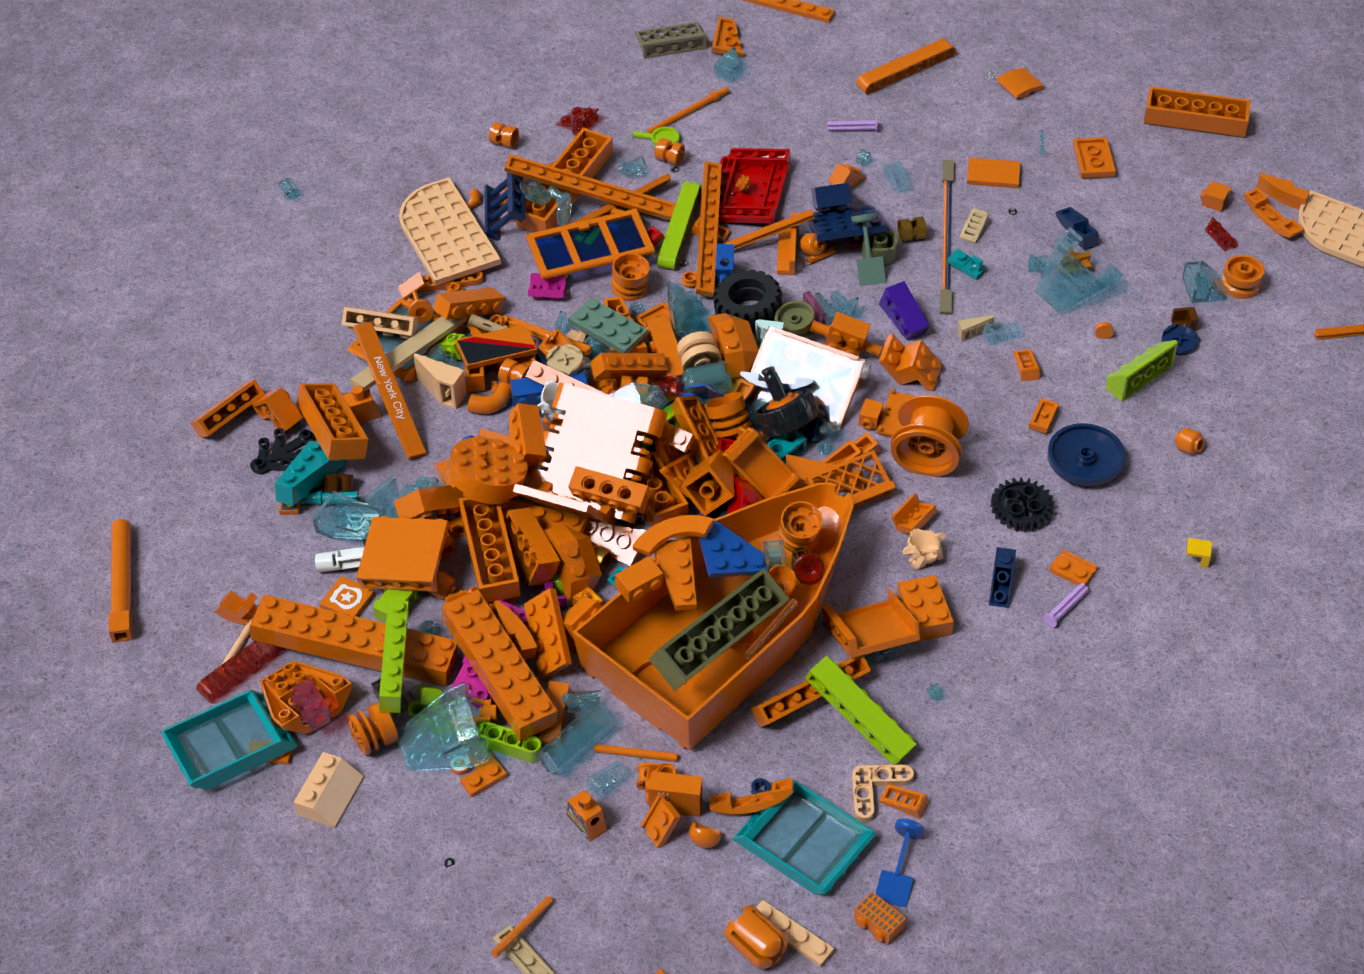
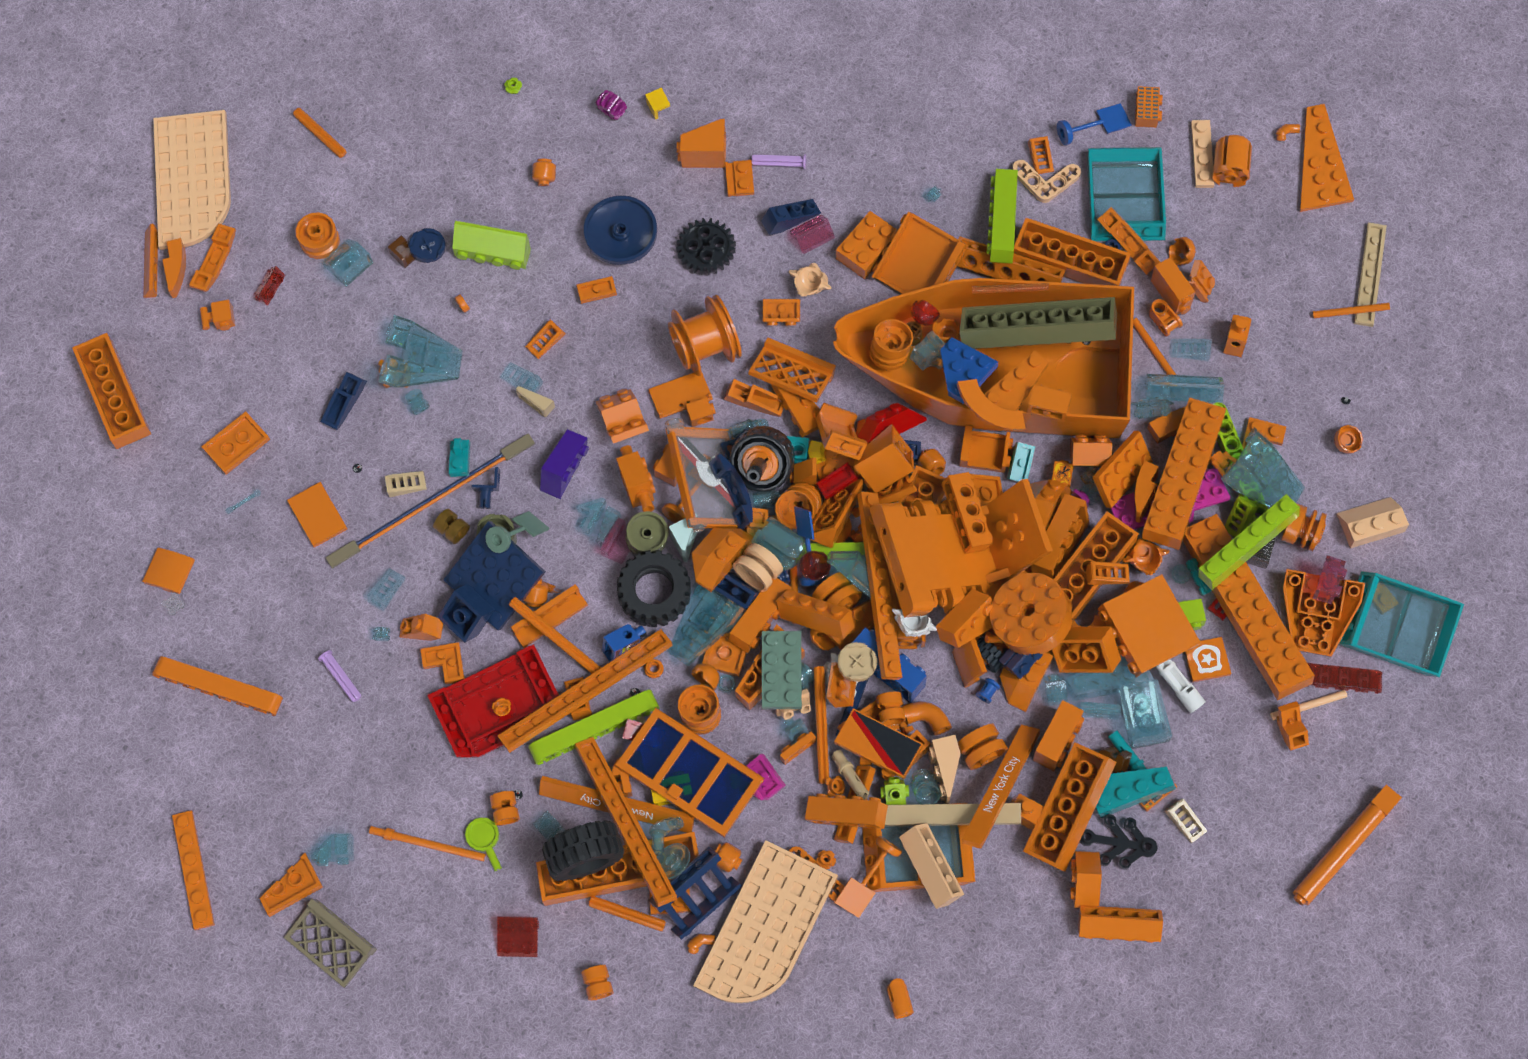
camera: 125 degrees left, 20 degrees up
(263, 502) = (1181, 824): none -> tan slope
(321, 269) = (899, 999): none -> orange arm
(389, 454) = (1059, 736): none -> orange brick
(408, 821) = (1348, 435): none -> orange hair
(431, 407) = (982, 746): none -> orange wheel
(471, 529) = (1097, 567): none -> orange slope
(512, 238) = (729, 857): none -> orange head
(548, 312) = (803, 742): none -> orange plate
(585, 136) = (582, 850): none -> black tyre
(651, 295) = (706, 675): none -> orange hair
(778, 743) = (1078, 256): none -> orange brick
(806, 181) = (447, 656): none -> orange plate
(924, 264) = (485, 490): none -> dark blue bracket
(972, 582) = (813, 233): none -> clear pink panel
(1118, 551) = (703, 146): none -> orange slope
(1221, 515) = (611, 104): none -> magenta gear
(1299, 471) = (513, 89): none -> lime plate
(1300, 181) = (150, 262): none -> orange slope

